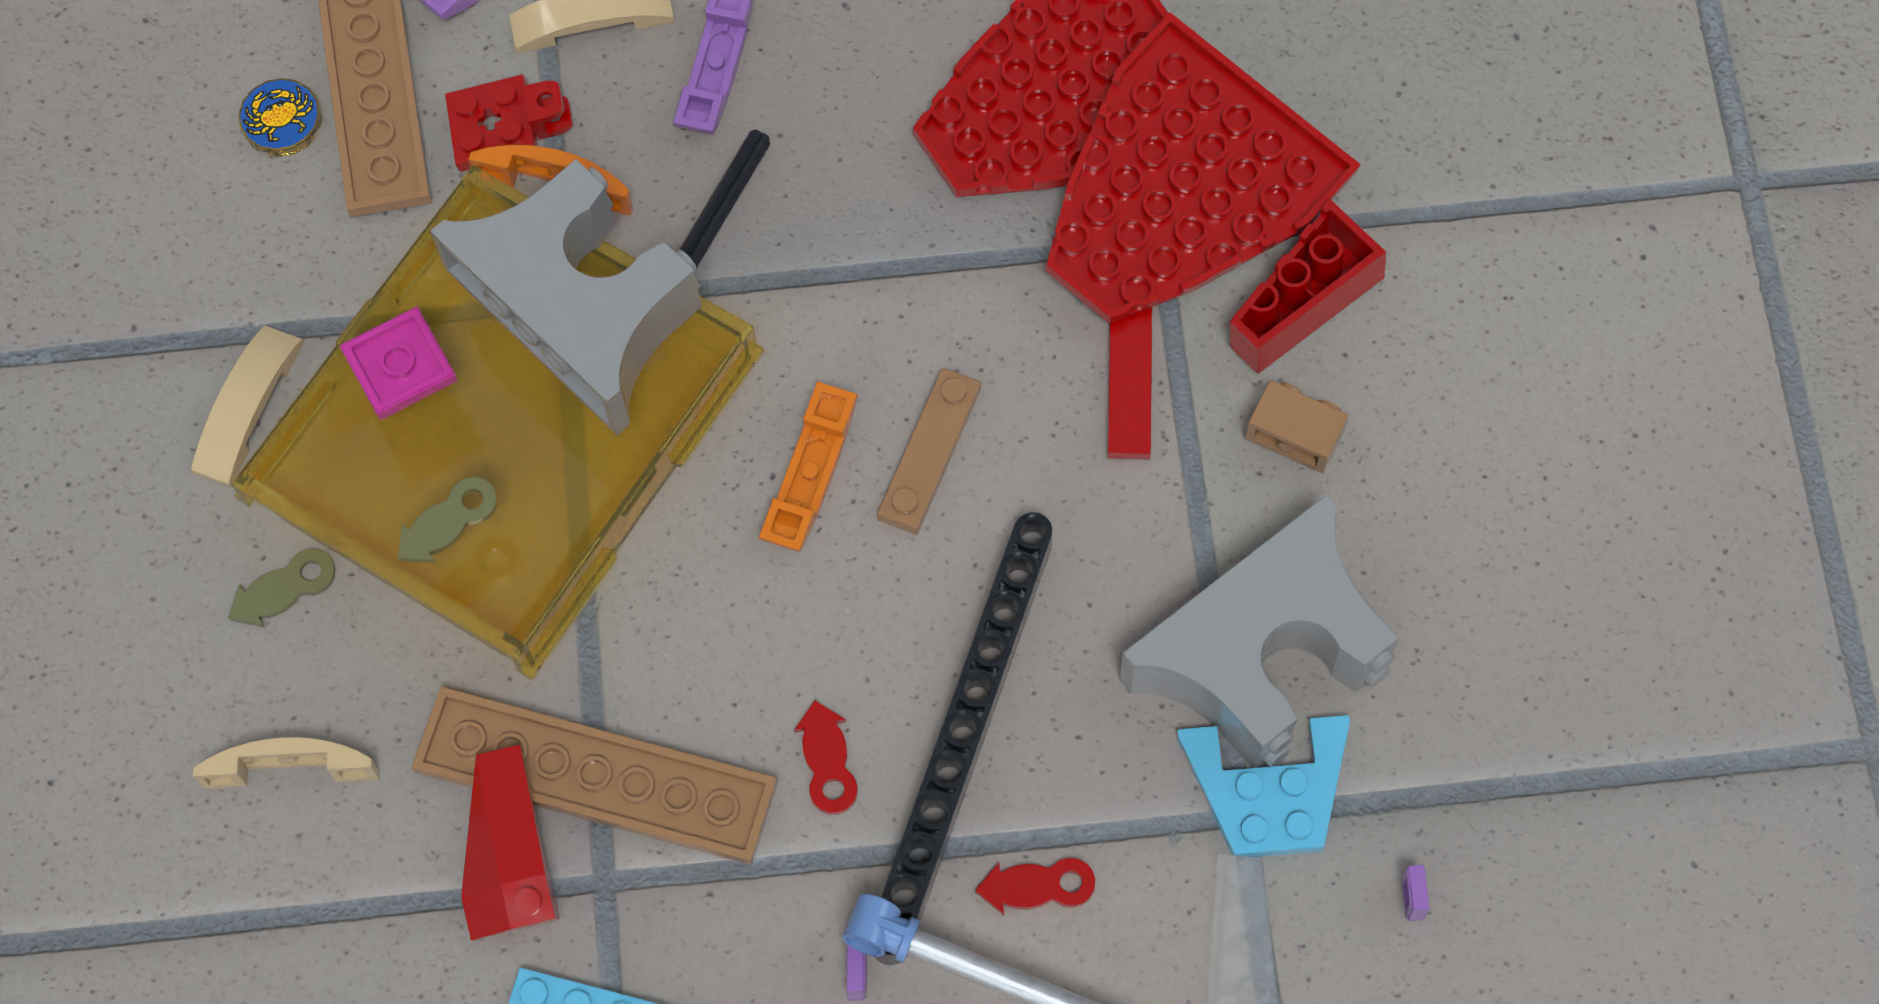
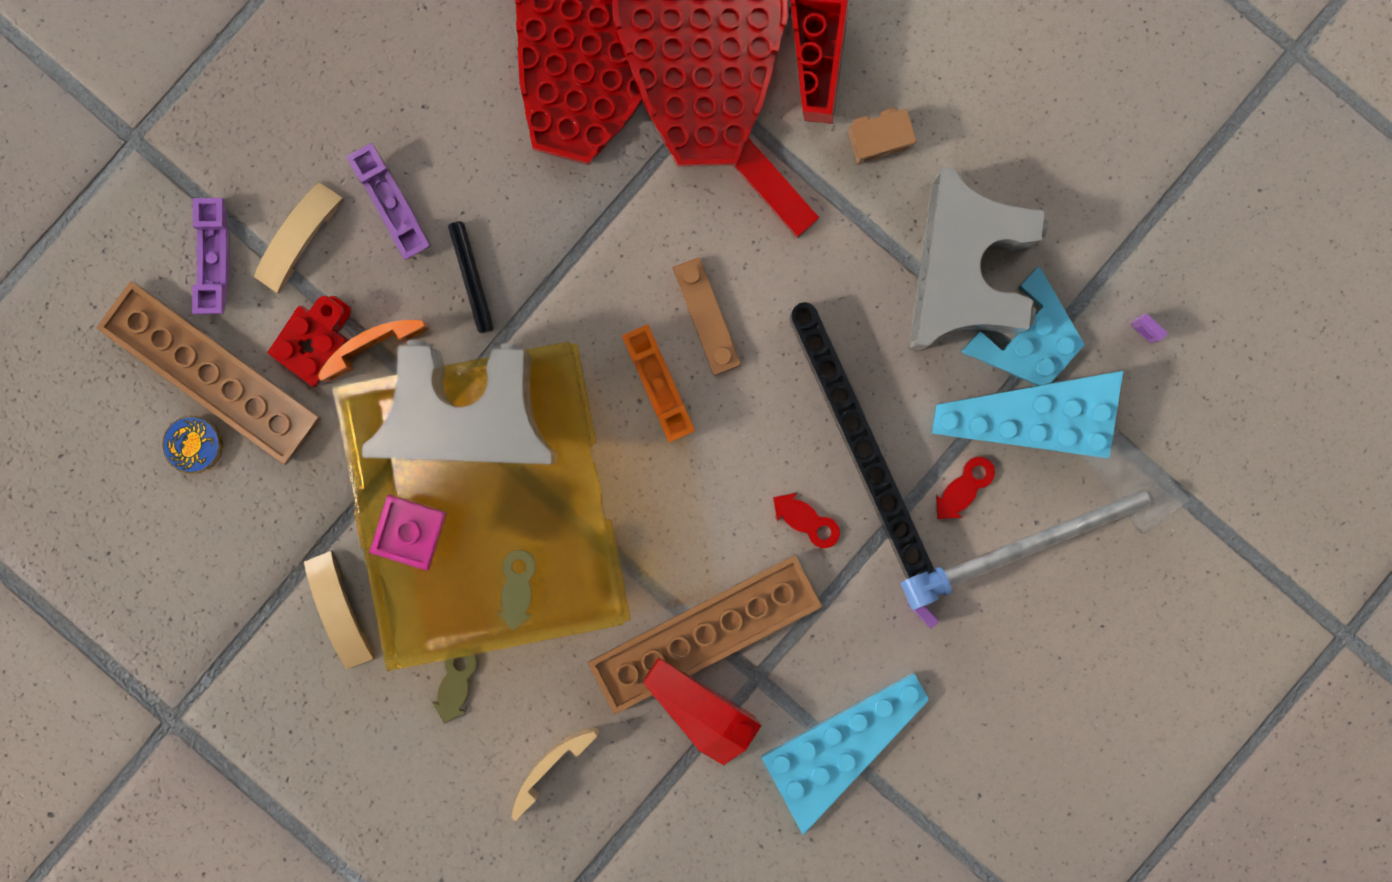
camera: 45 degrees left, 20 degrees up
(1211, 887) = (1056, 416): none -> medium azure wing

